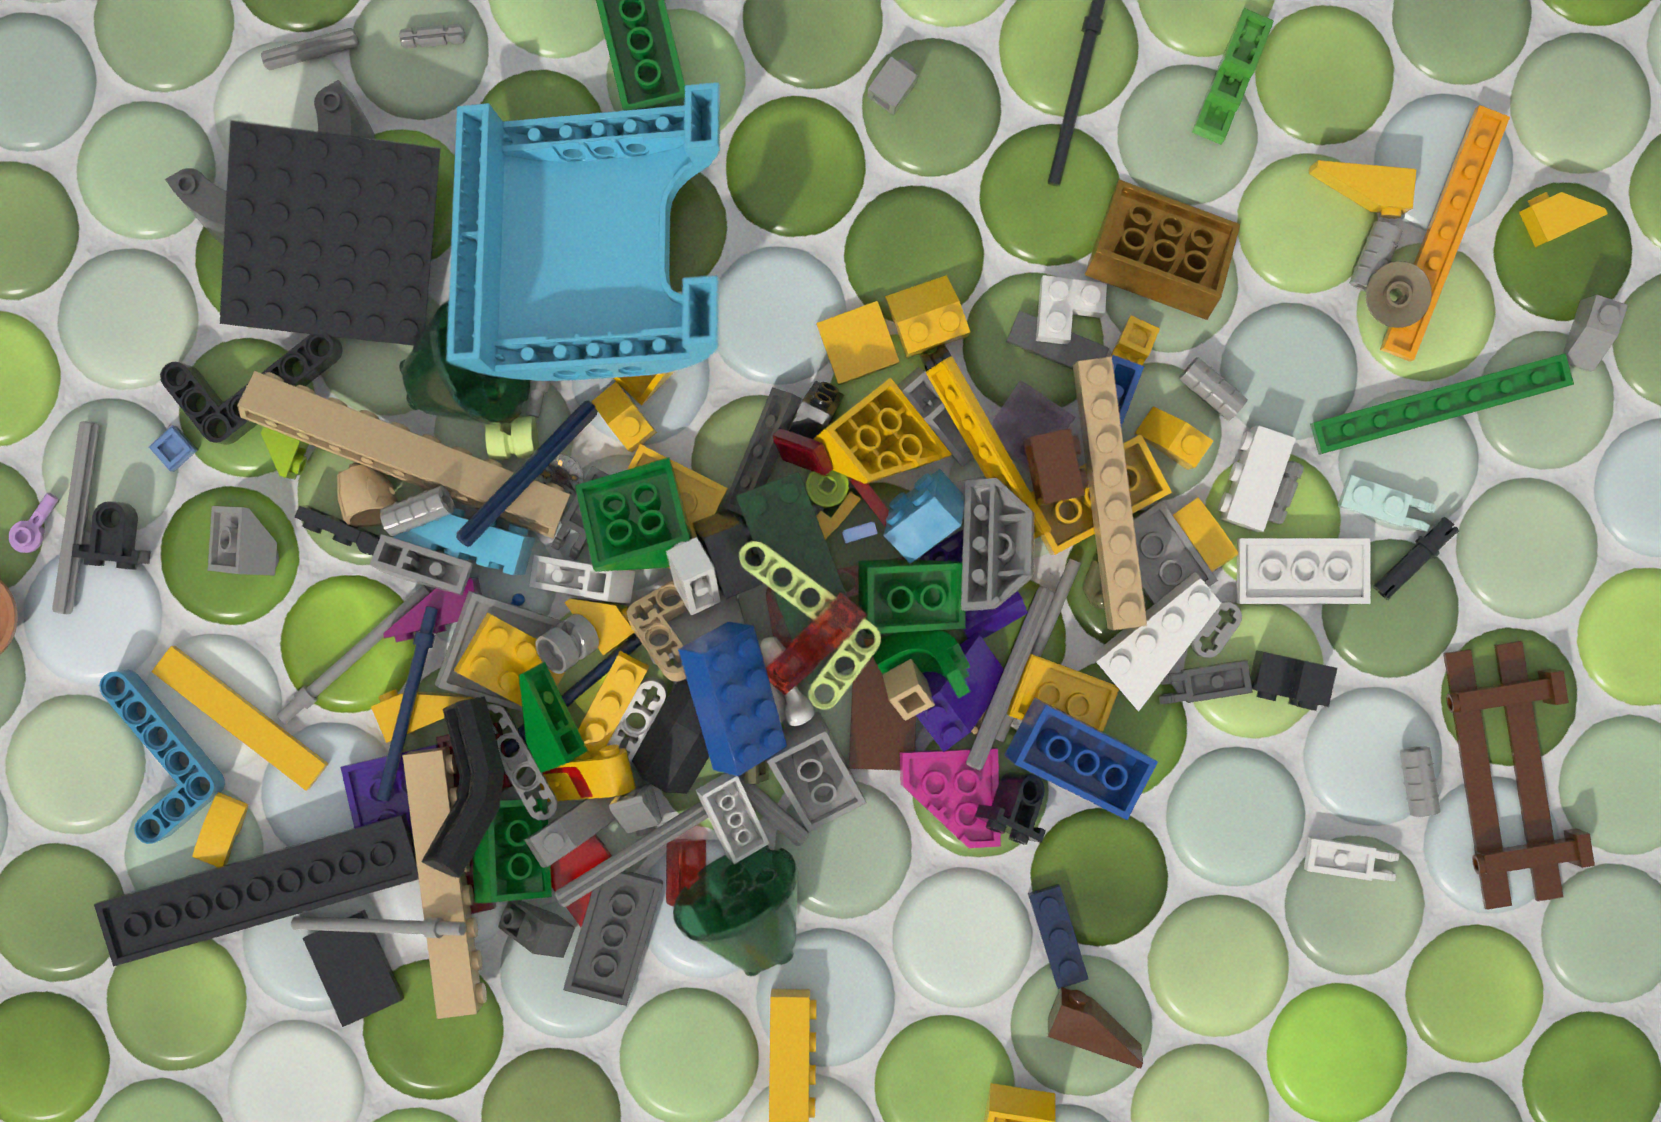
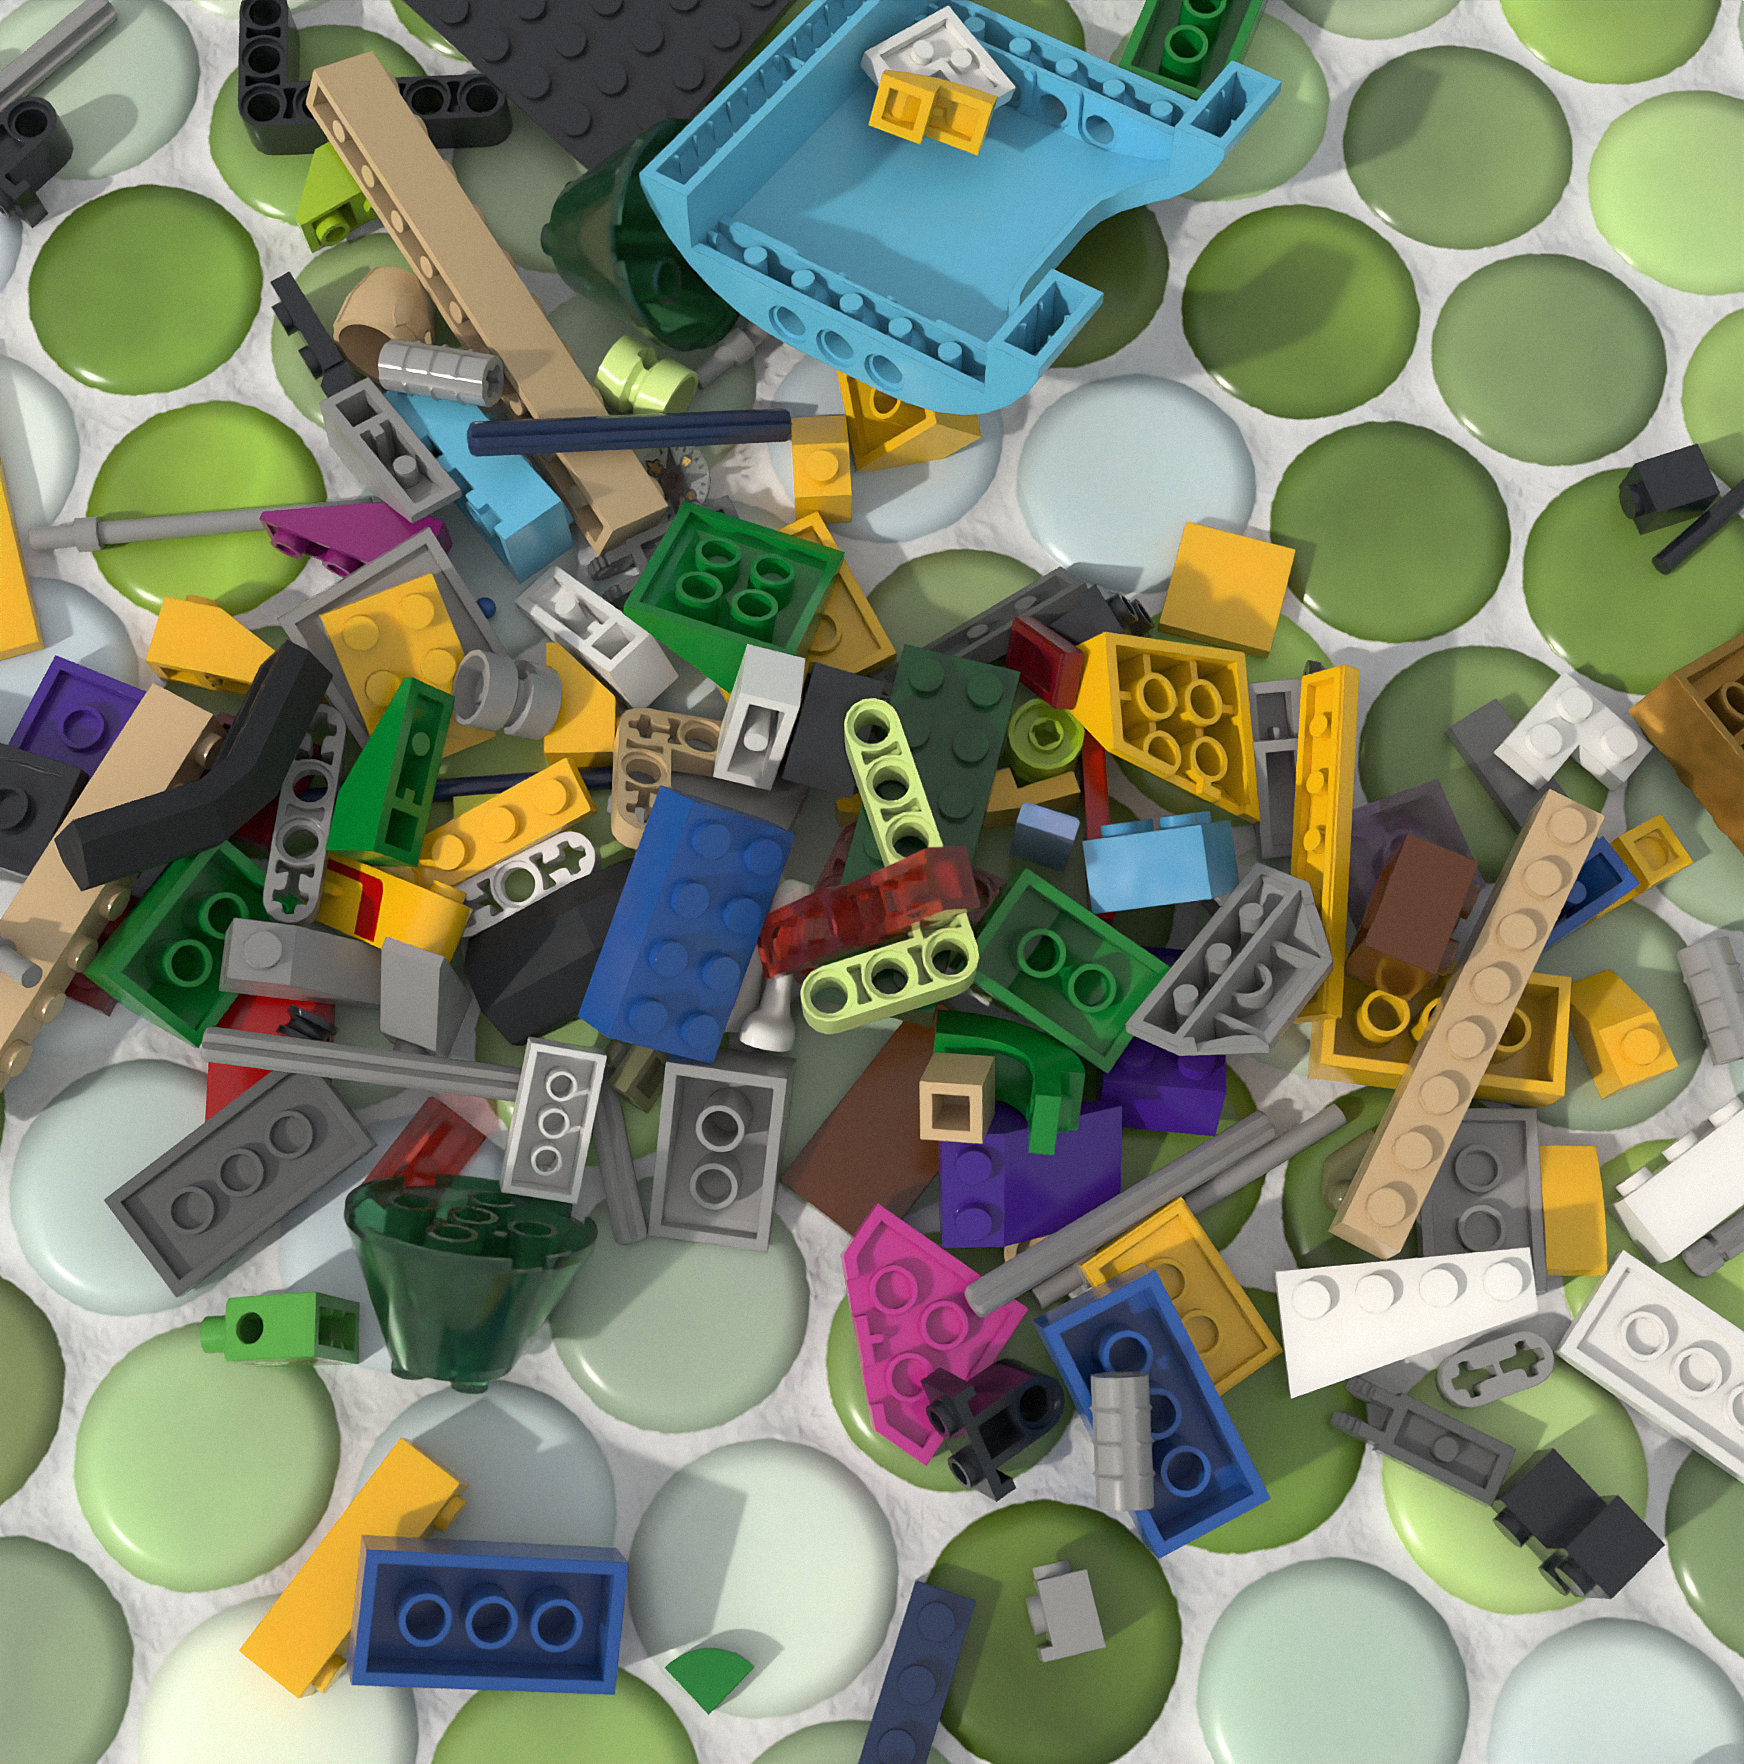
camera: 30 degrees right, 15 degrees down
(173, 448) = (186, 107): medium blue tile -> none
(240, 543) = (173, 276): light grey slope -> none
(423, 640) = (310, 556): dark blue bar -> none
(534, 167) = (943, 50): none -> white plate
(536, 928) = (139, 1083): dark grey slope -> none
(560, 200) = (934, 108): none -> yellow slope
(593, 855) = (306, 1025): none -> black bush
(686, 988) = (285, 1330): none -> bright green torso
(862, 1042) = (487, 1615): none -> blue brick
(893, 84) = (1514, 287): light grey brick -> none
(927, 316) = (1354, 621): yellow slope -> none
(969, 994) = (709, 1674): none -> green tile
(1033, 144) = (1668, 489): none -> black brick
(1081, 788) = (1122, 1441): none -> light grey axle
(1100, 865) = (1064, 1611): none -> light grey brick

